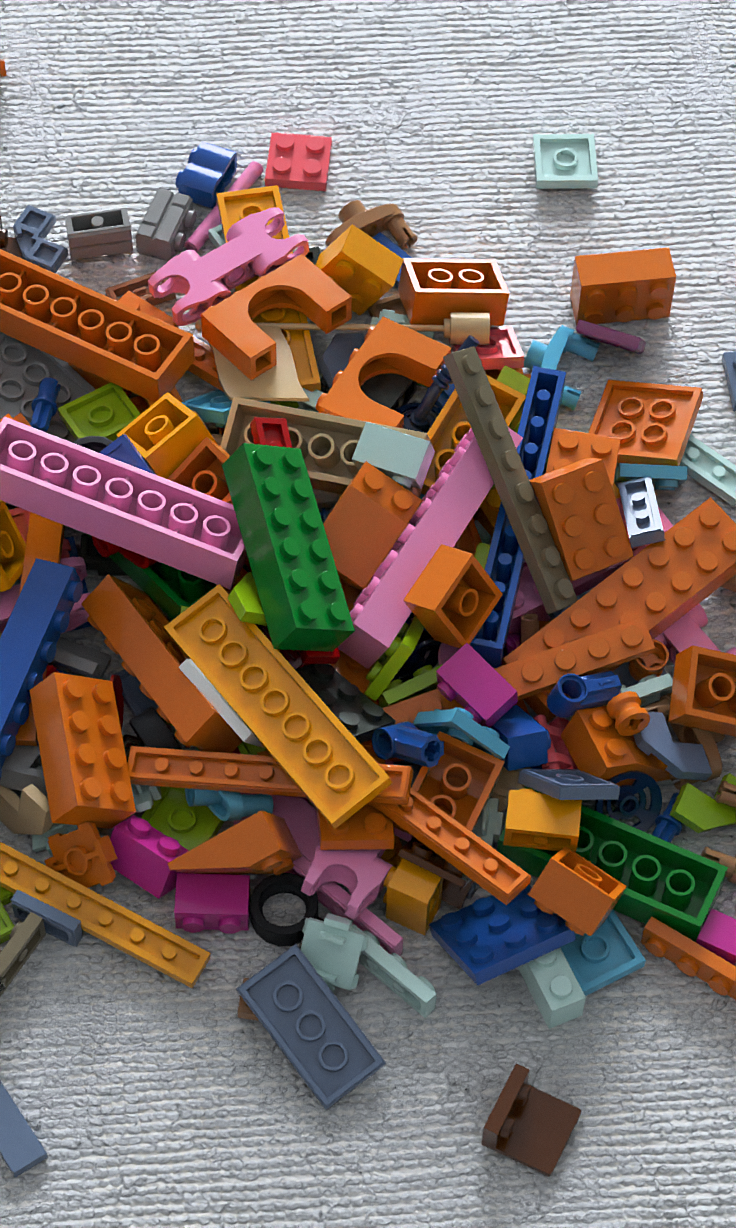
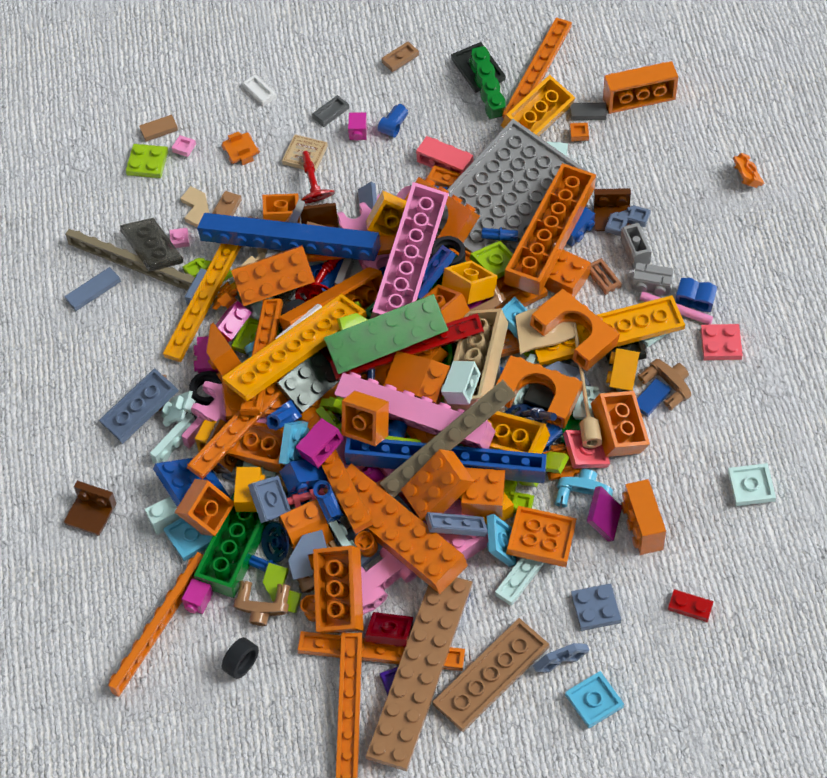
camera: 90 degrees right, 0 degrees up
(212, 276) = (604, 297): bright pink piece -> none
(628, 713) = (313, 522): orange wheel -> none

